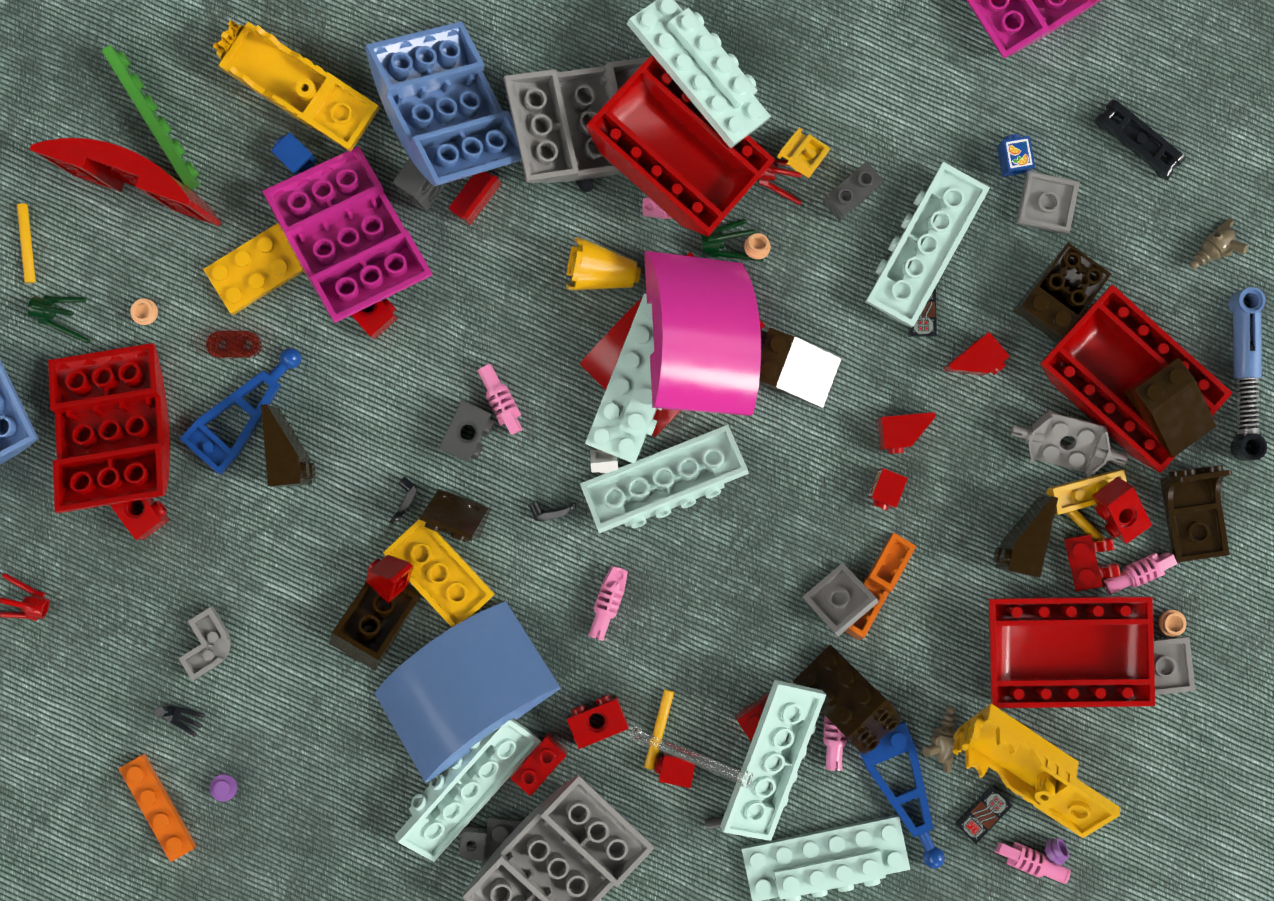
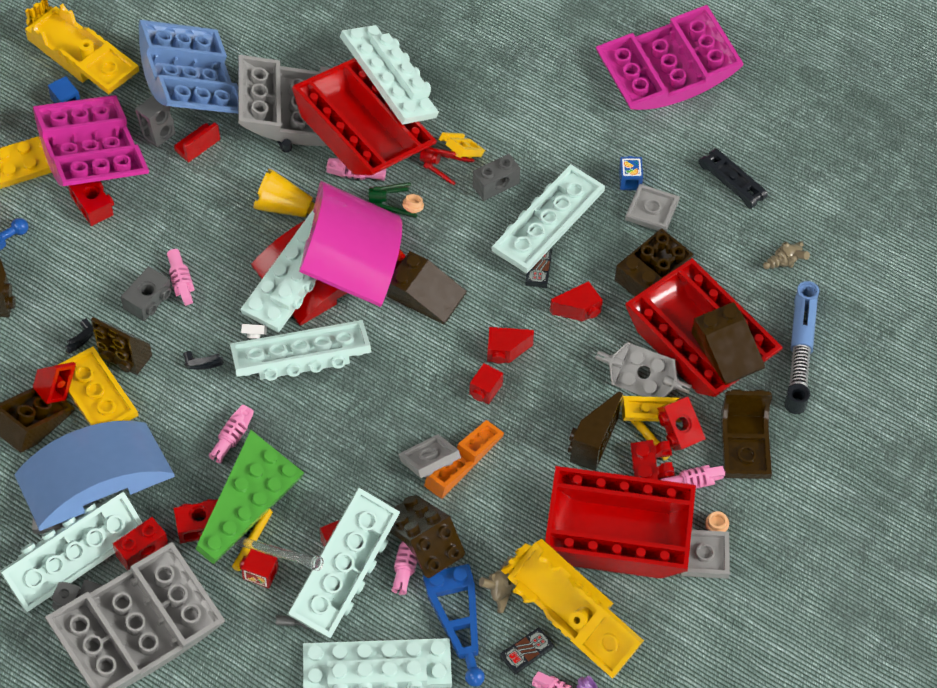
camera: 10 degrees right, 30 degrees down
(648, 677) = (252, 489): none -> bright green wing

